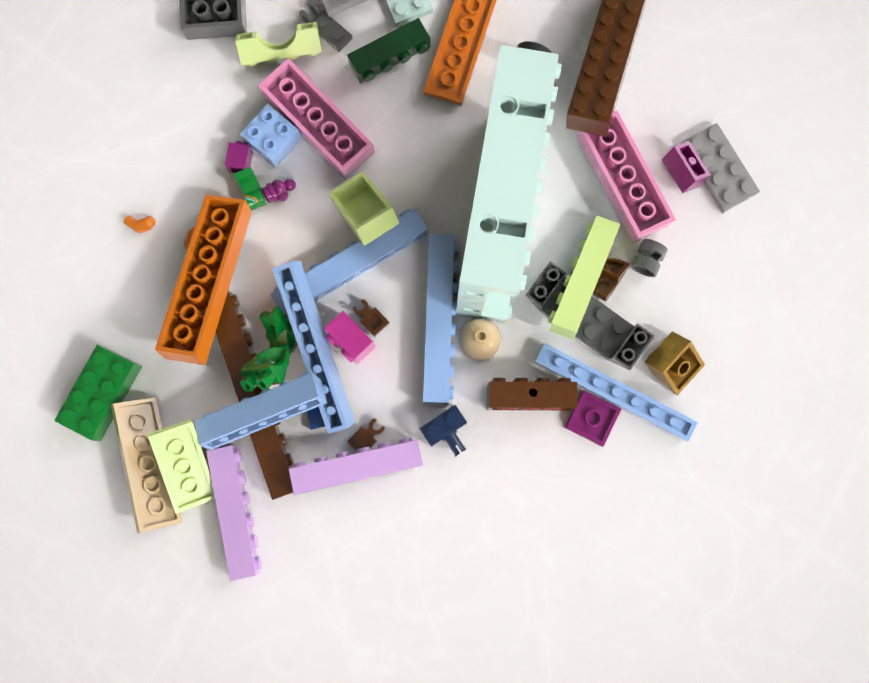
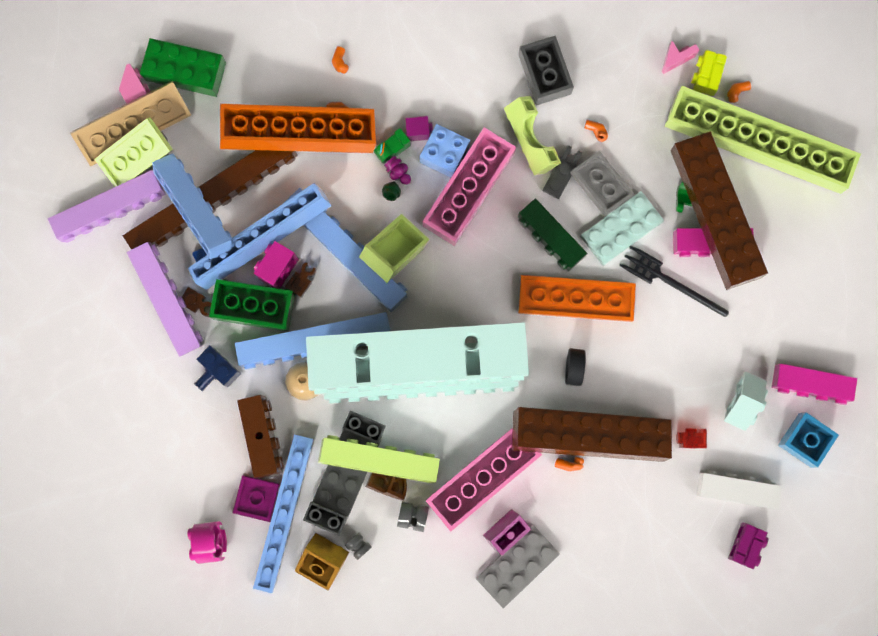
camera: 75 degrees right, 0 degrees up
(104, 454) = (131, 85): none -> bright pink slope
(271, 364) = (233, 201): green hips -> none
(299, 202) = (391, 191): none -> dark green plate
(386, 373) = (252, 305): none -> green brick
(631, 86) = (570, 466): none -> orange arm
(631, 477) = (207, 542): none -> dark pink brick
(667, 321) = (358, 545): none -> dark grey wheel

